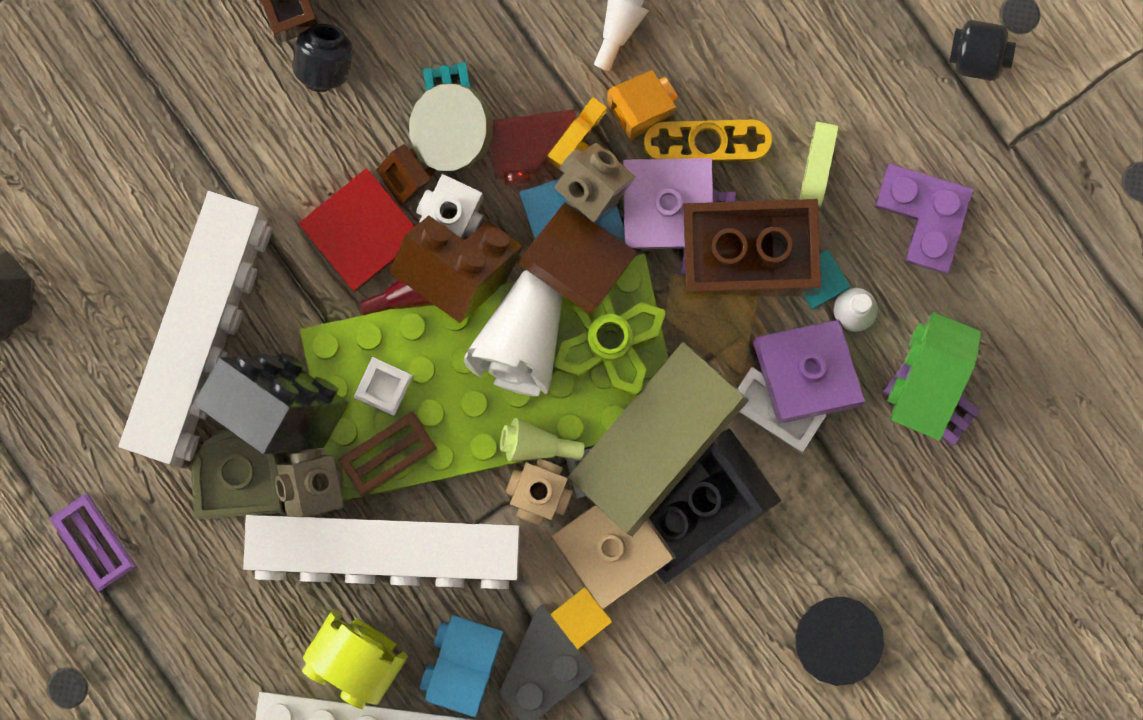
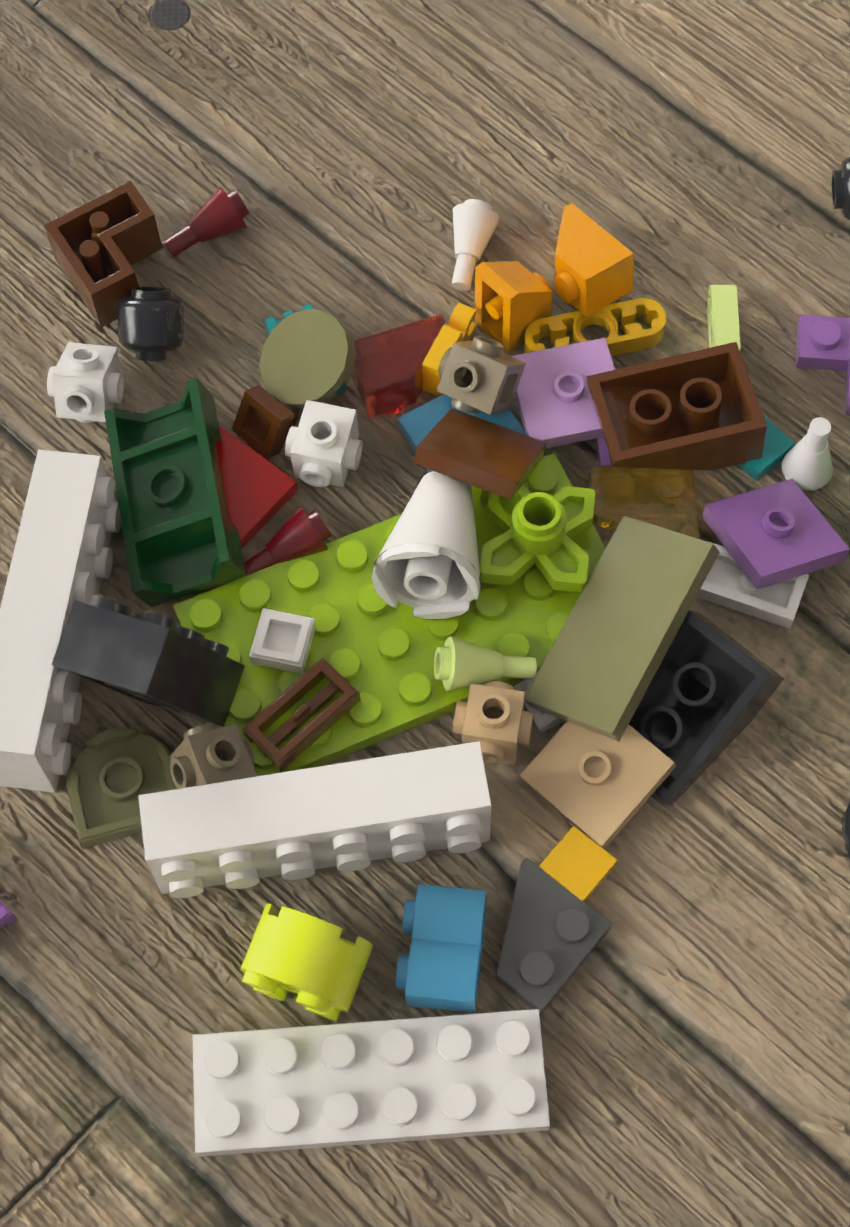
camera: 10 degrees left, 20 degrees down
(258, 107) = (86, 382): none -> white brick
(315, 232) = (173, 498): none -> dark green piece
(455, 271) = (340, 491): reddish brown brick -> none
(713, 81) = (590, 263): none -> light orange slope

